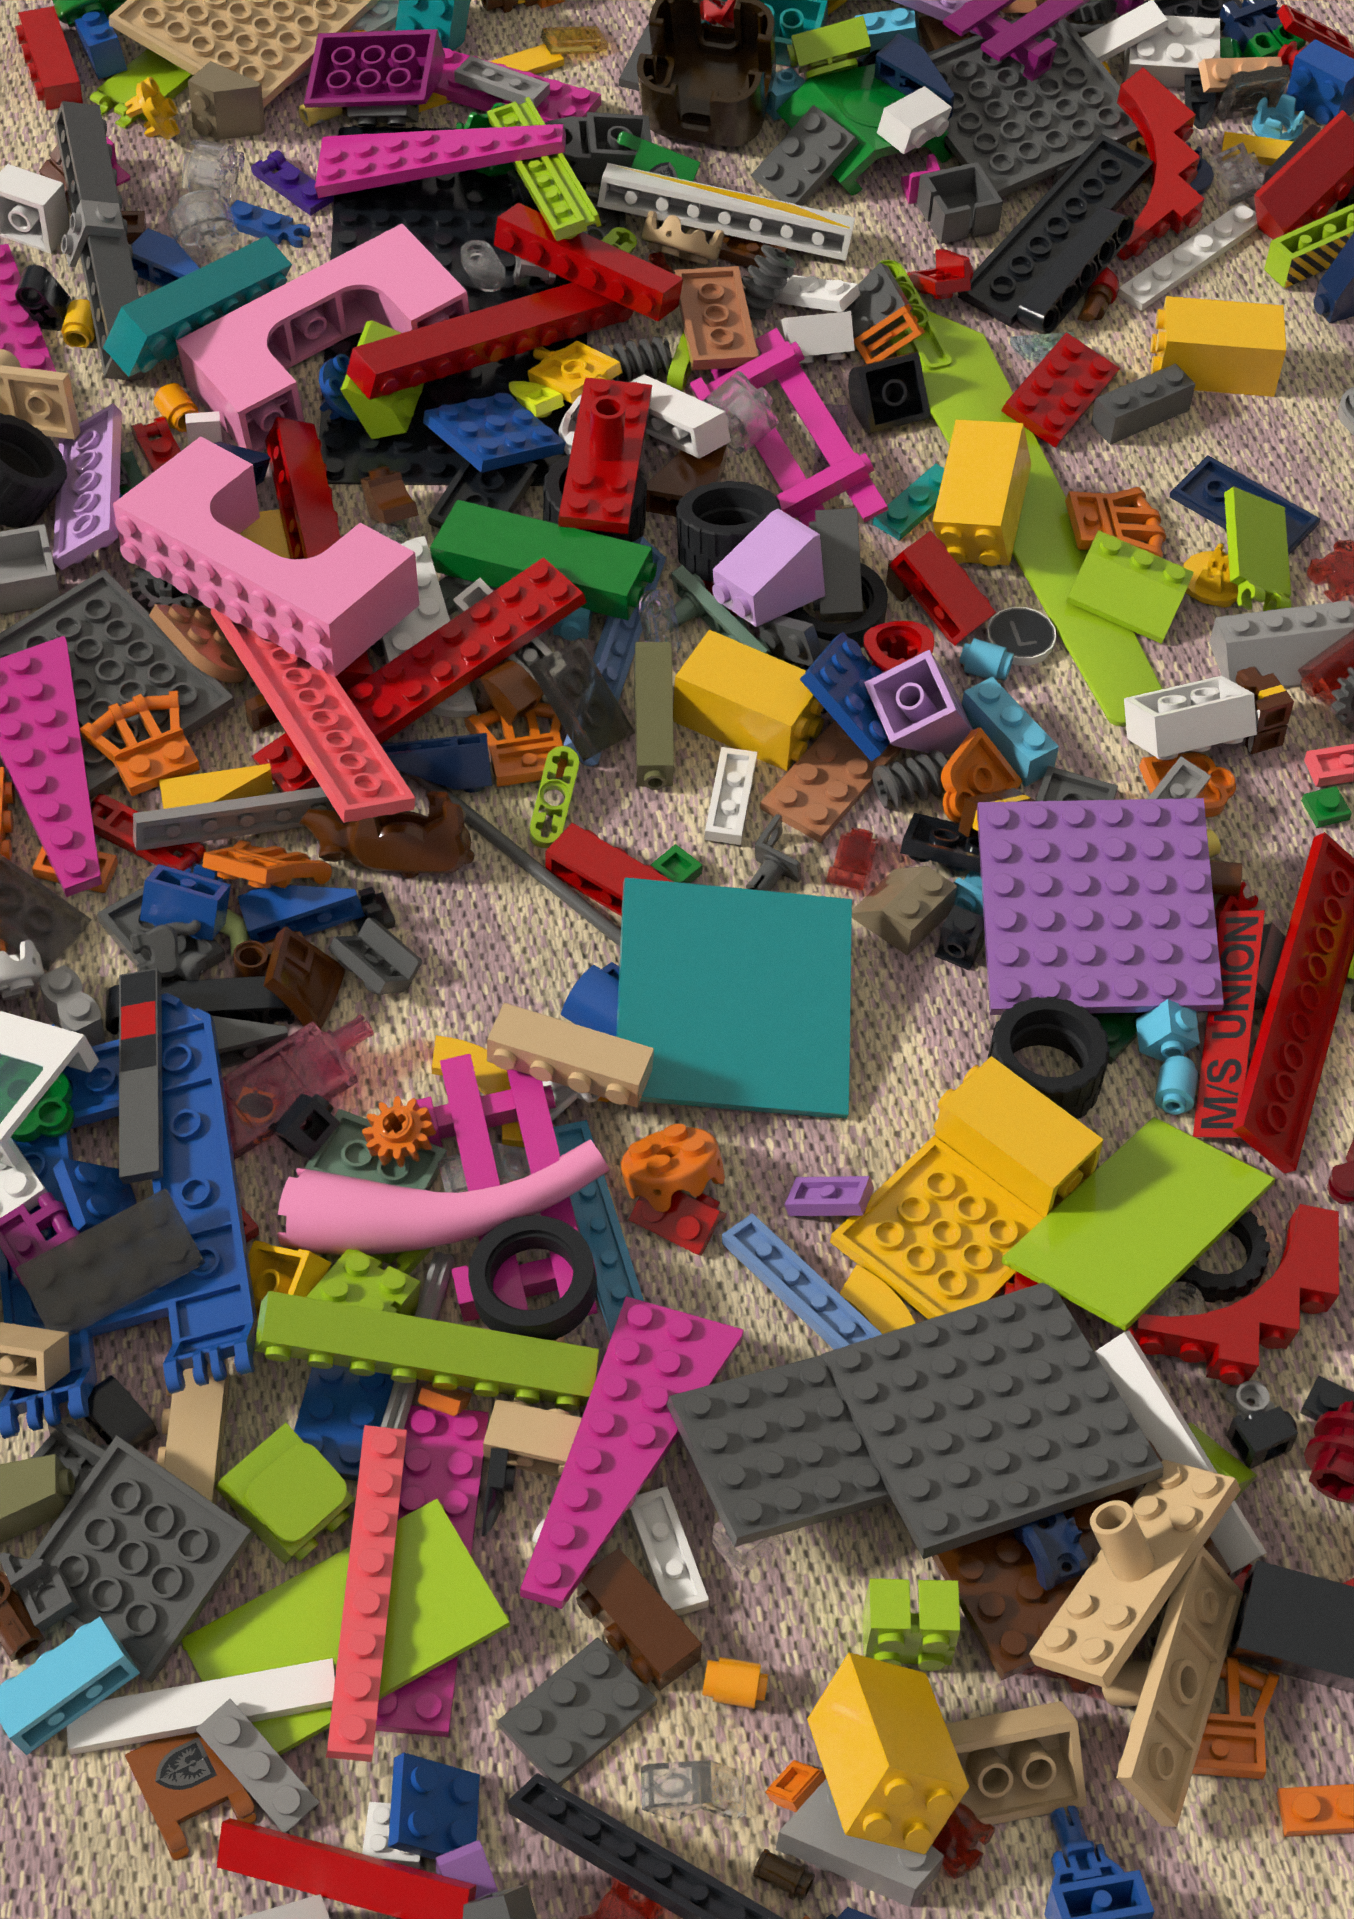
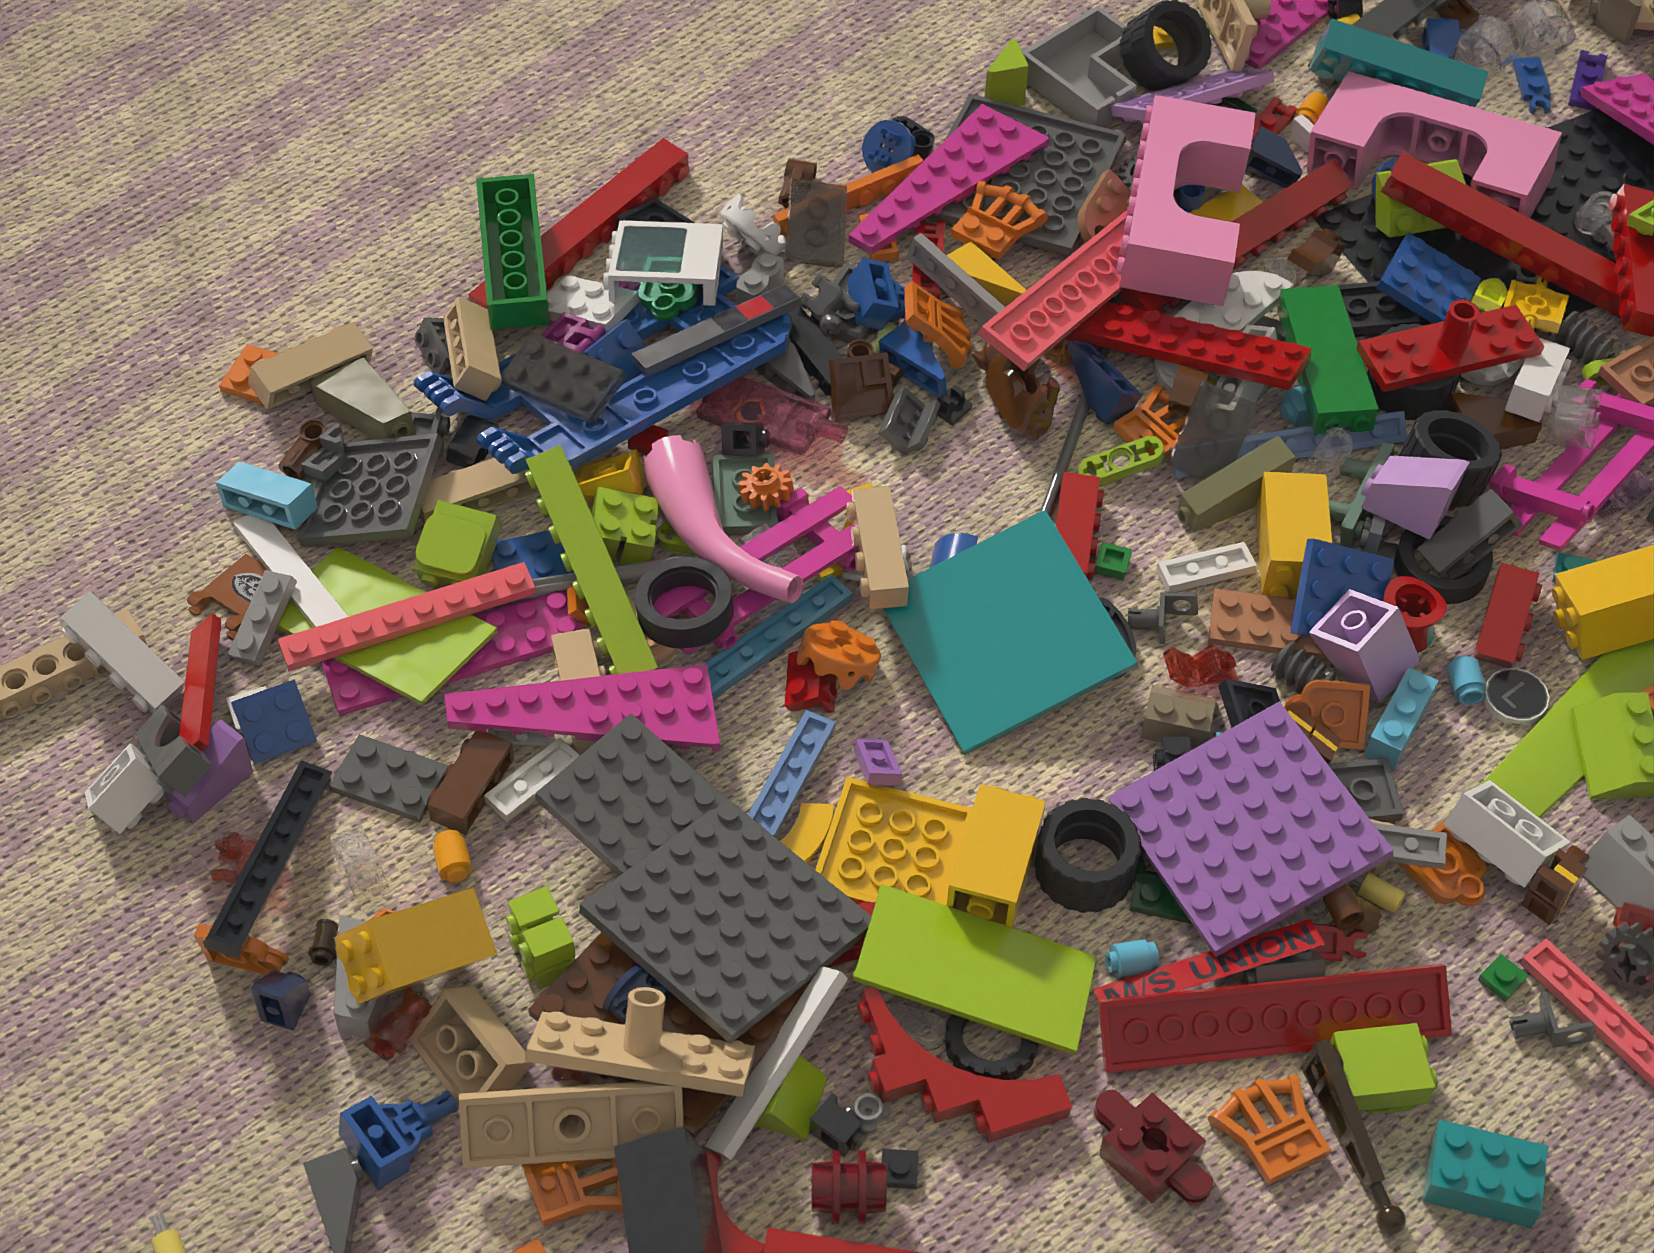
camera: 65 degrees right, 0 degrees up
(500, 1479) = (530, 660): black plate -> none
(1167, 1031) = (1173, 929): medium azure brick -> none

